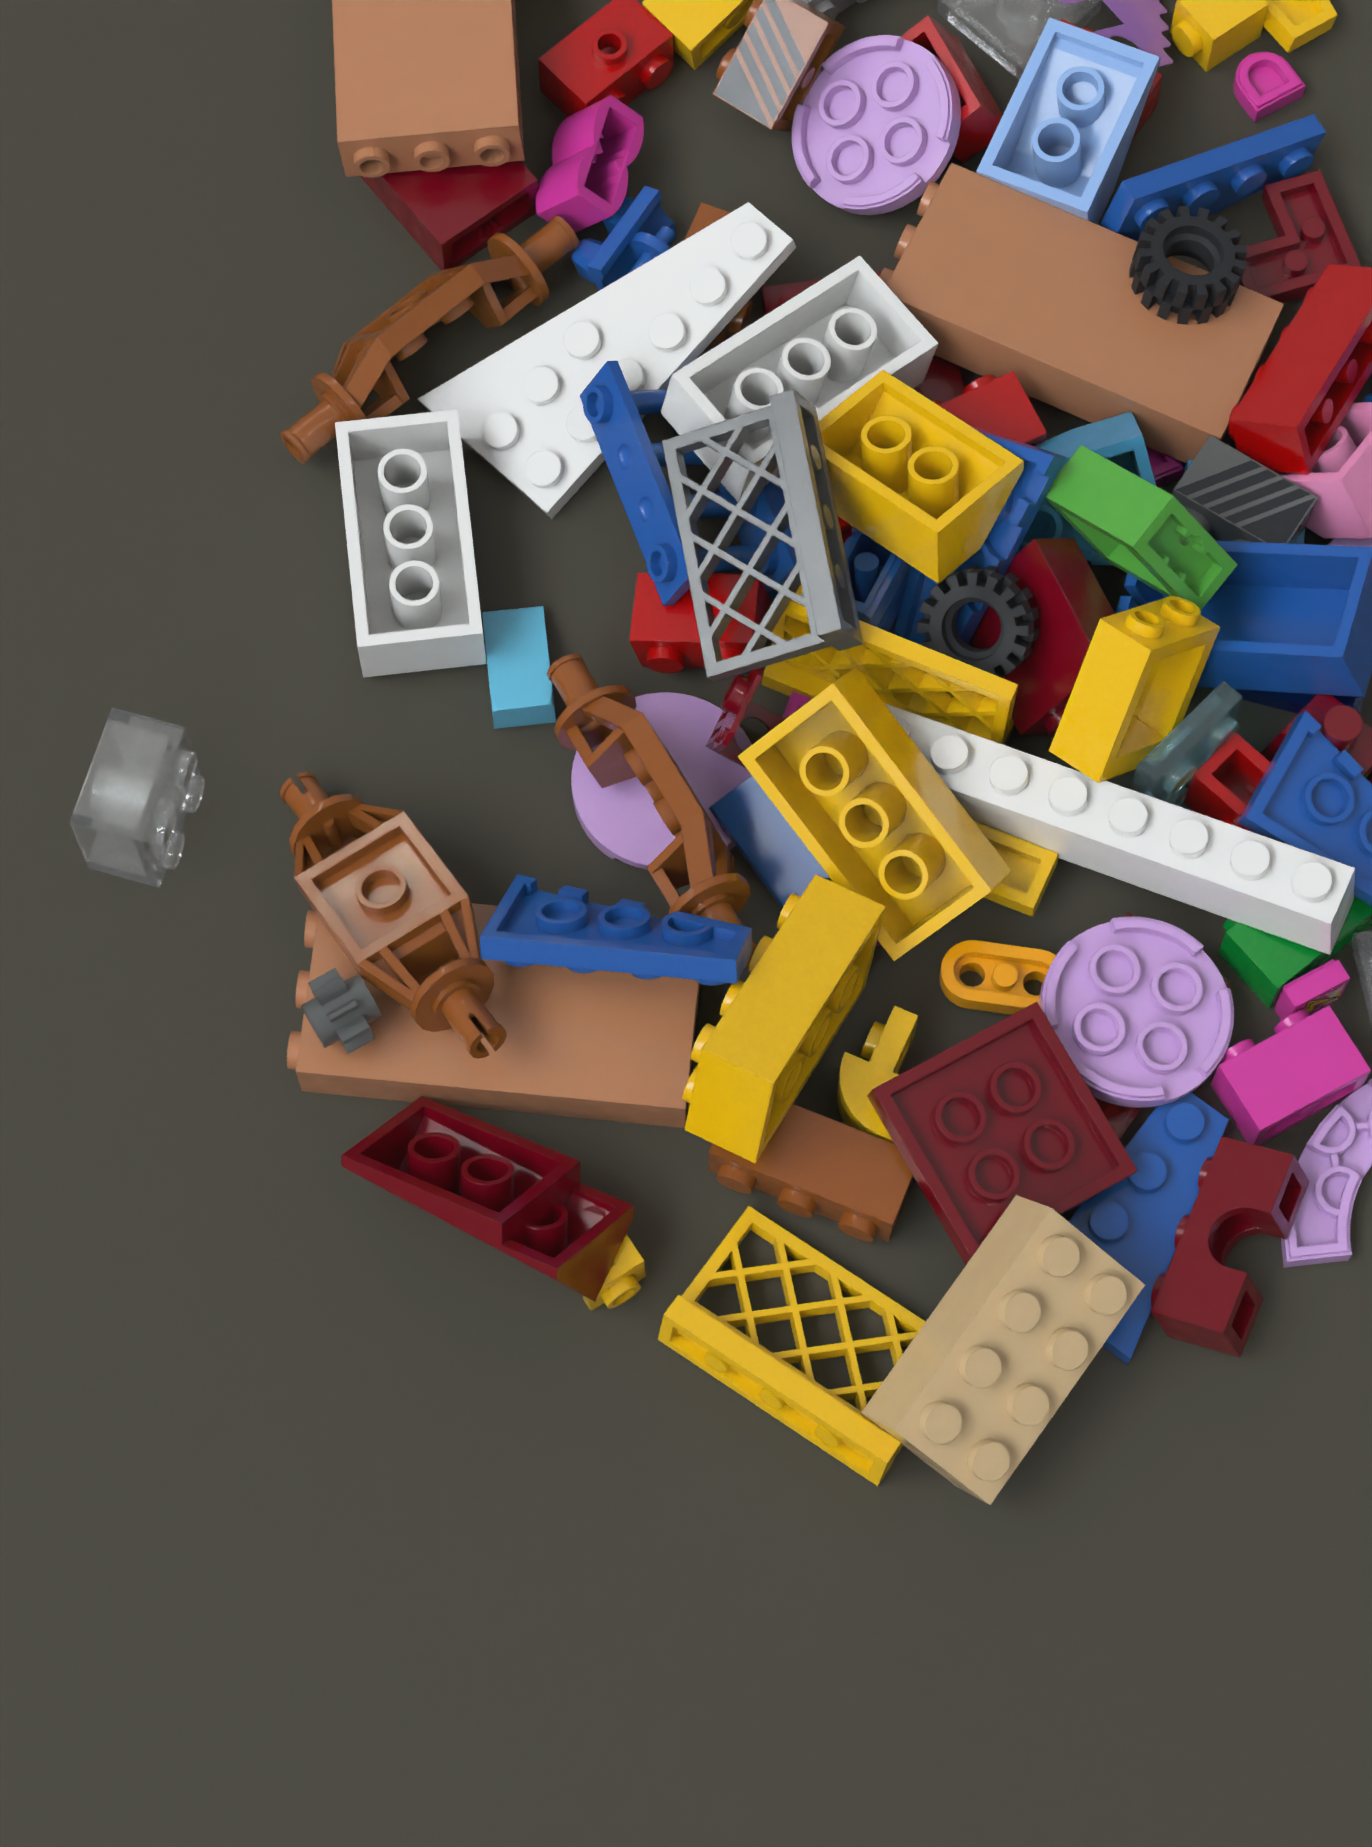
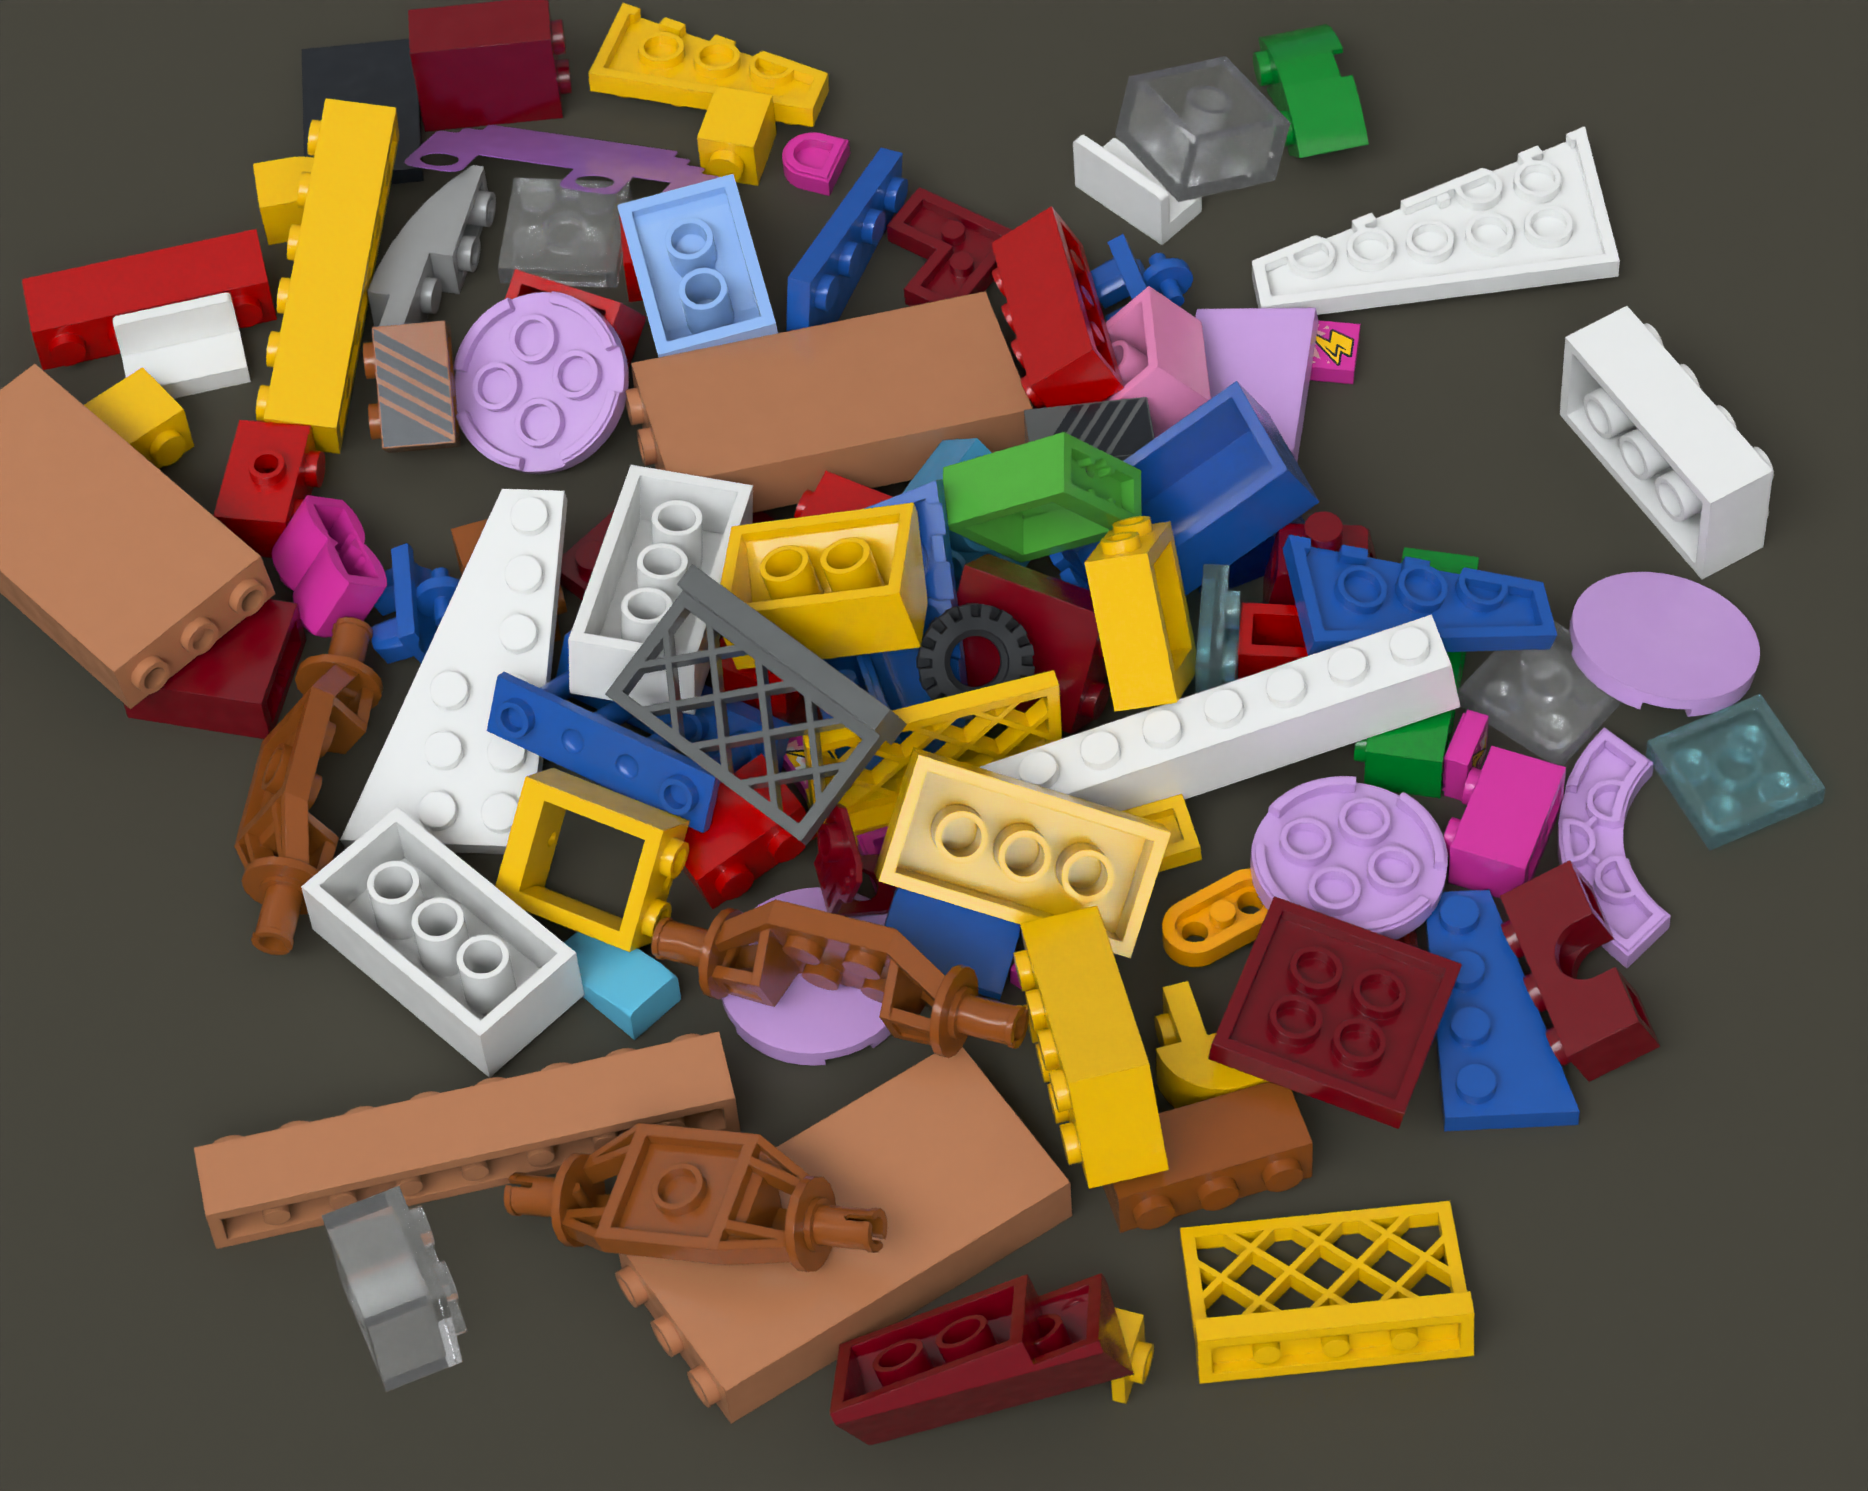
camera: 35 degrees left, 15 degrees down
(301, 716) = (458, 1137): none -> nougat brick
(341, 1010) = (728, 1305): dark grey gear -> none
(513, 537) = (534, 841): none -> yellow window
(622, 938) = (907, 1077): blue wing -> none
(1003, 1348) = (1486, 1159): tan brick -> none
(1195, 239) = (897, 329): black tyre -> none

